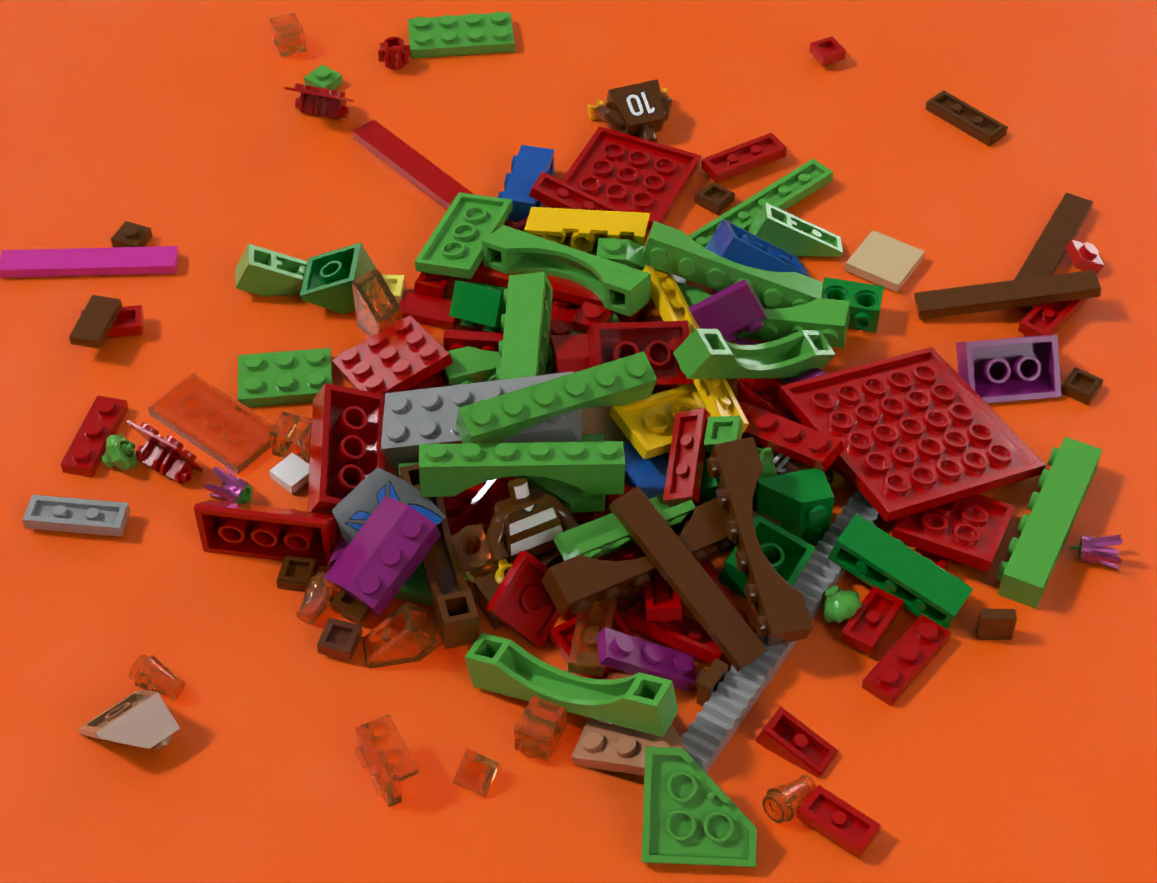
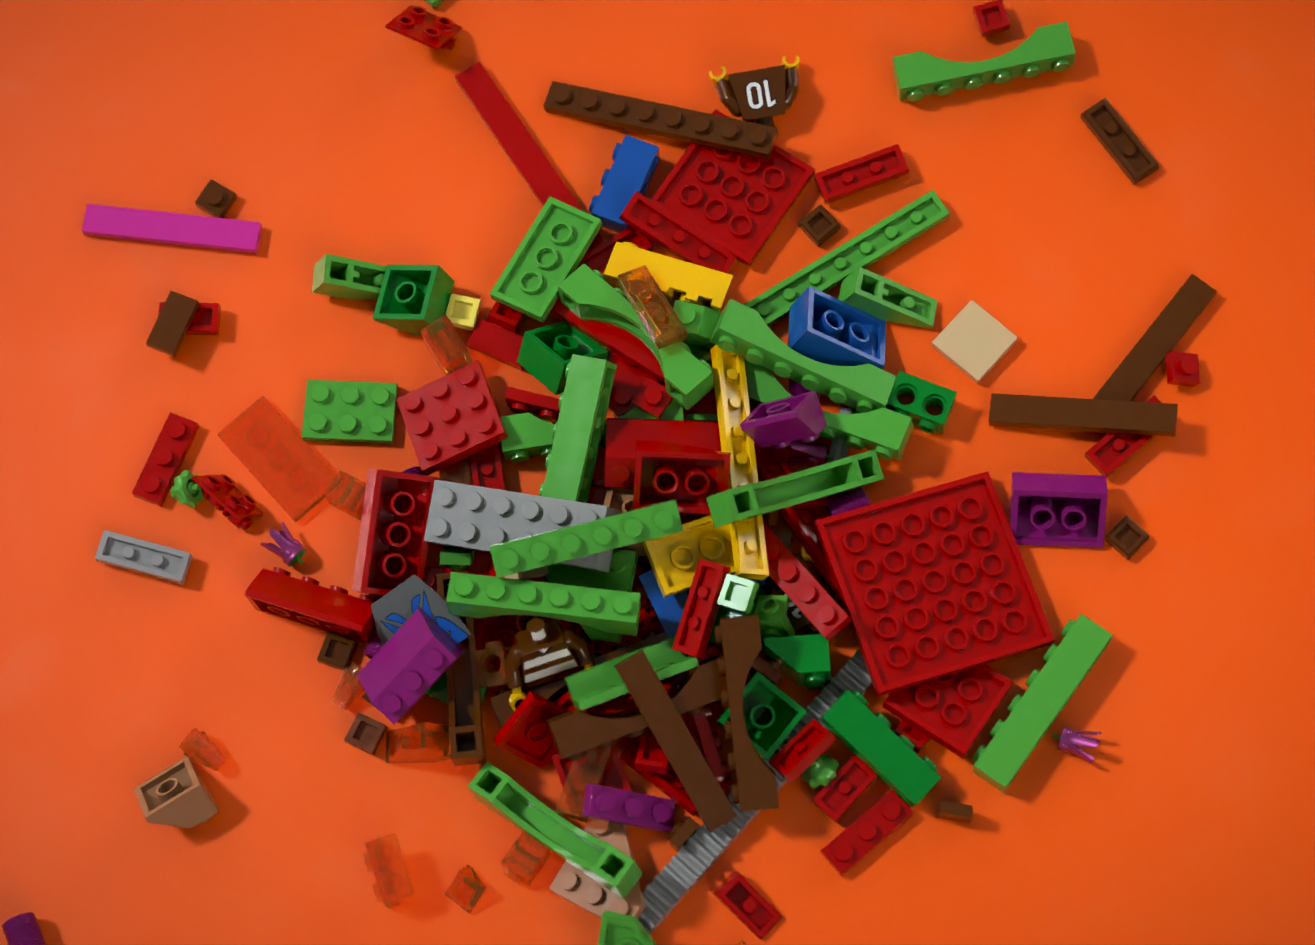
camera: 20 degrees right, 25 degrees up
(291, 473) = (343, 533): white tile -> none
(551, 136) = (661, 119): none -> reddish brown plate
(579, 237) = (652, 307): none -> clear orange plate
(782, 88) = (924, 75): none -> bright green arch
(824, 578) = (802, 750): none -> red plate

